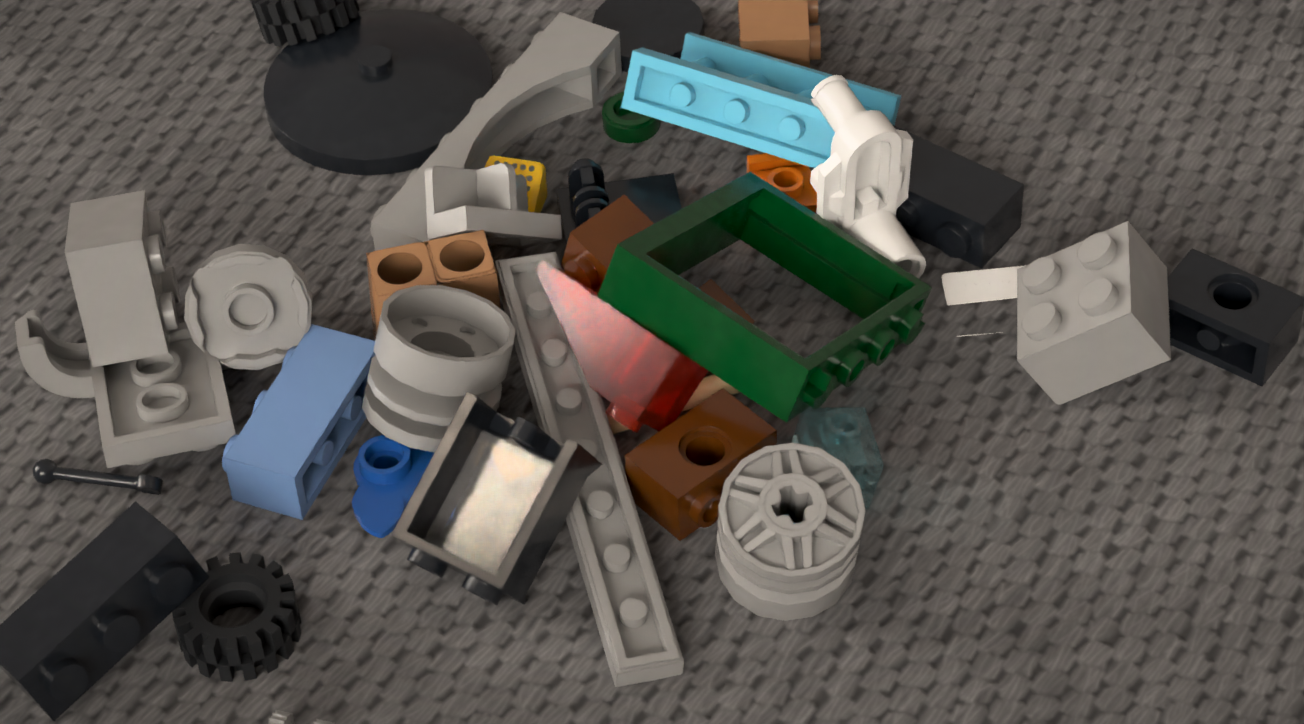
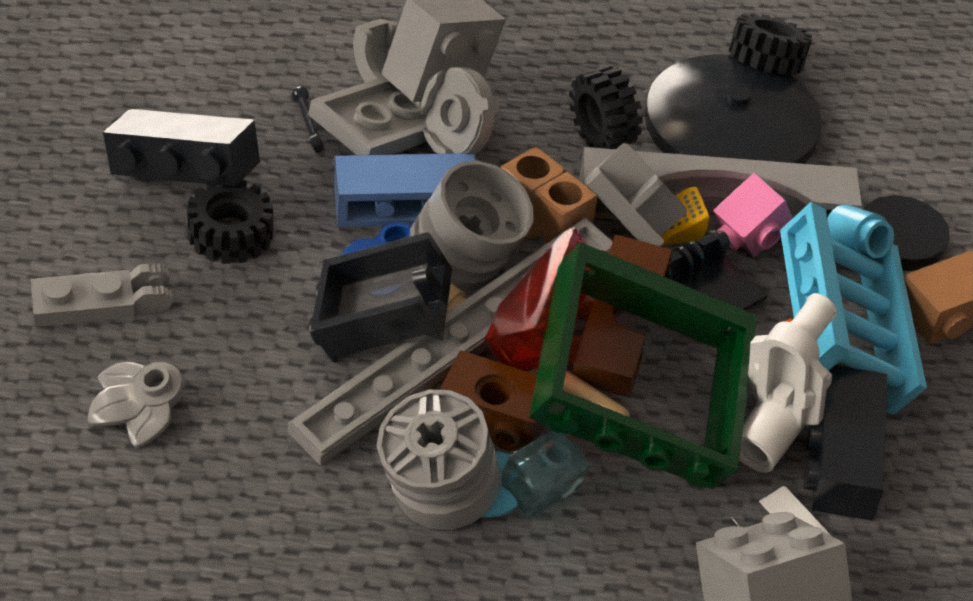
camera: 55 degrees right, 0 degrees up
(320, 156) = (605, 108): none -> black tyre
(567, 126) = (753, 216): none -> bright pink brick
(660, 35) = (861, 231): none -> medium azure brick

